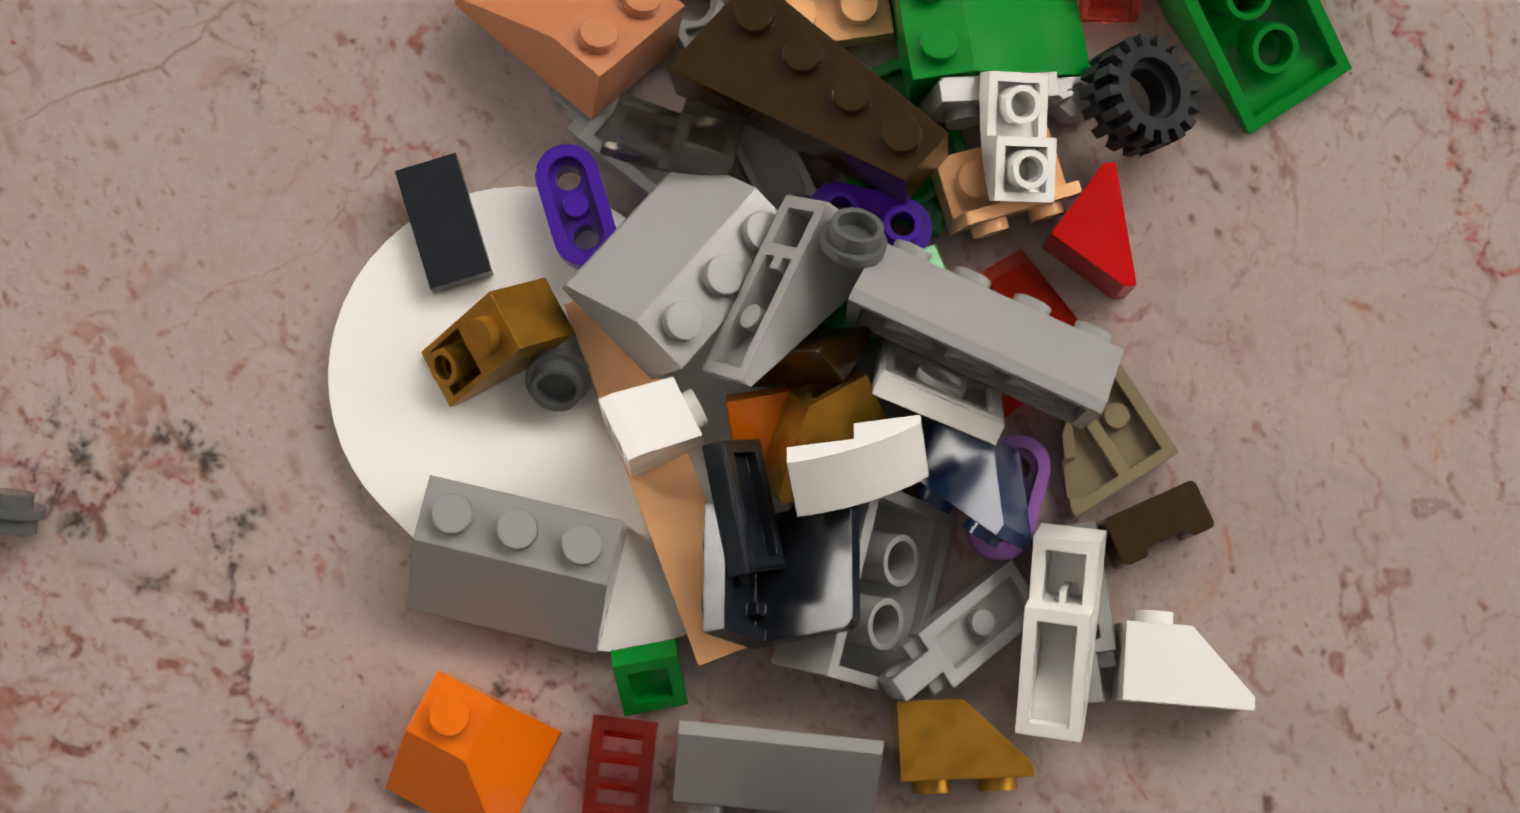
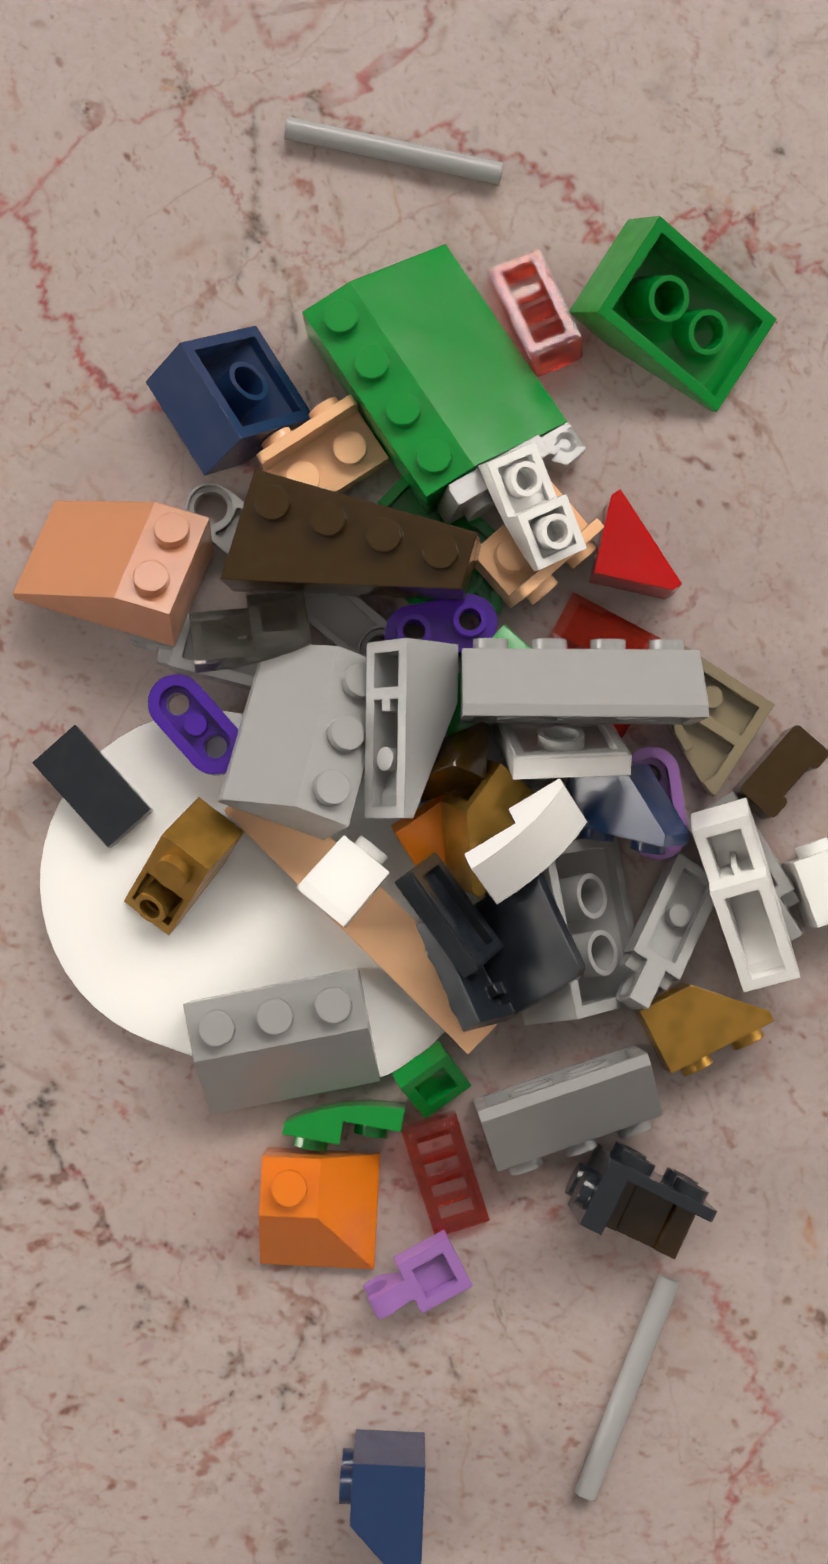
camera: 25 degrees left, 5 degrees up
(518, 672) = (324, 1123): none -> green slope
(557, 379) = (247, 875): dark grey plate -> none
(854, 238) = (442, 659): dark grey plate -> none
(1164, 84) = (632, 404): black tyre -> none

